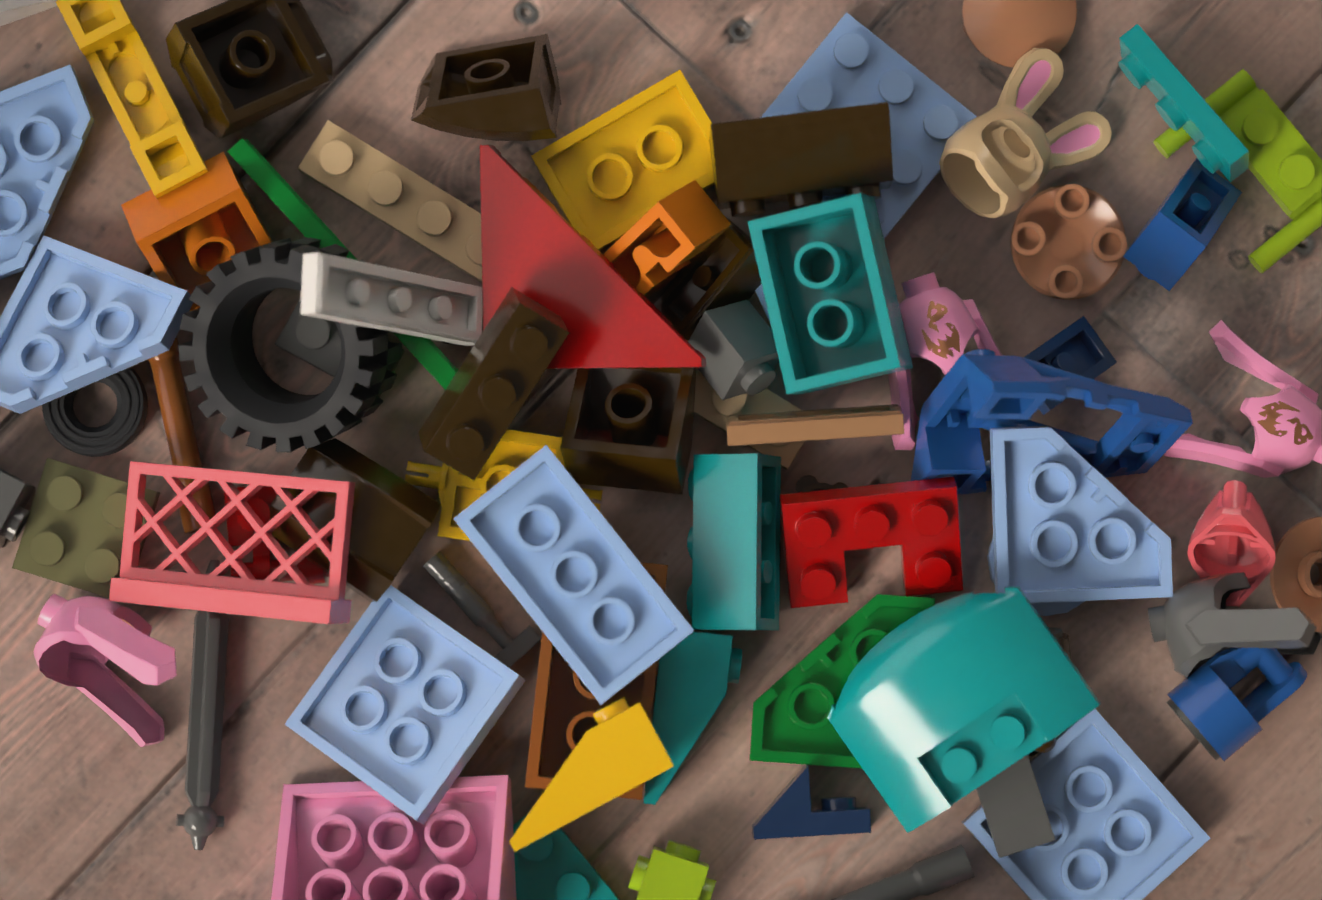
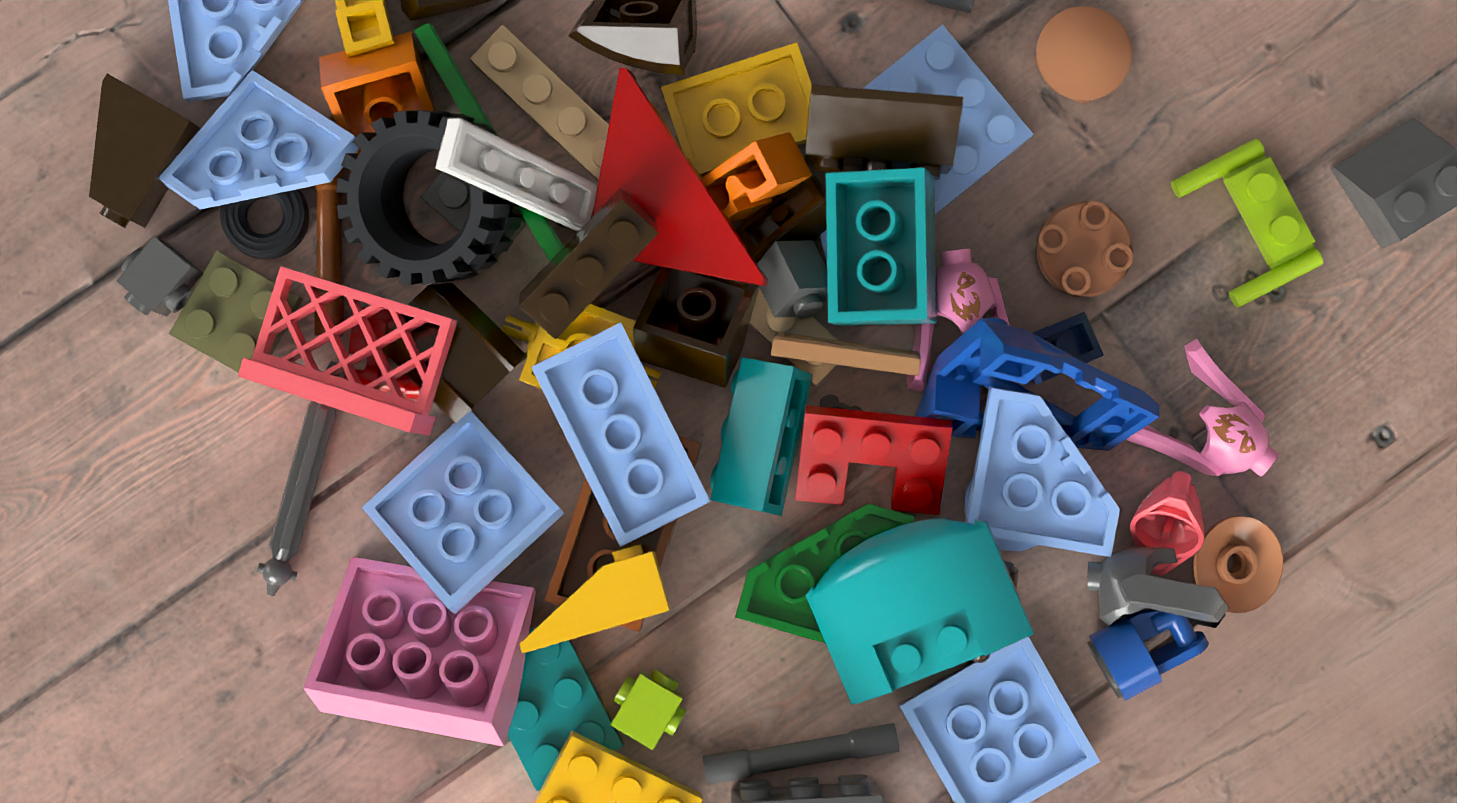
camera: 15 degrees right, 0 degrees up
(81, 640) = (218, 401): bright pink piece -> none
(479, 611) = (540, 449): dark grey piece -> none
(688, 692) = (695, 552): teal slope -> none
(792, 814) = (761, 672): dark blue slope -> none
(1006, 154) = (1050, 165): tan piece -> none
(1015, 810) = (944, 705): dark grey tile -> none
(1182, 105) = (1202, 155): teal plate -> none
(1182, 225) = (1181, 255): blue slope -> none

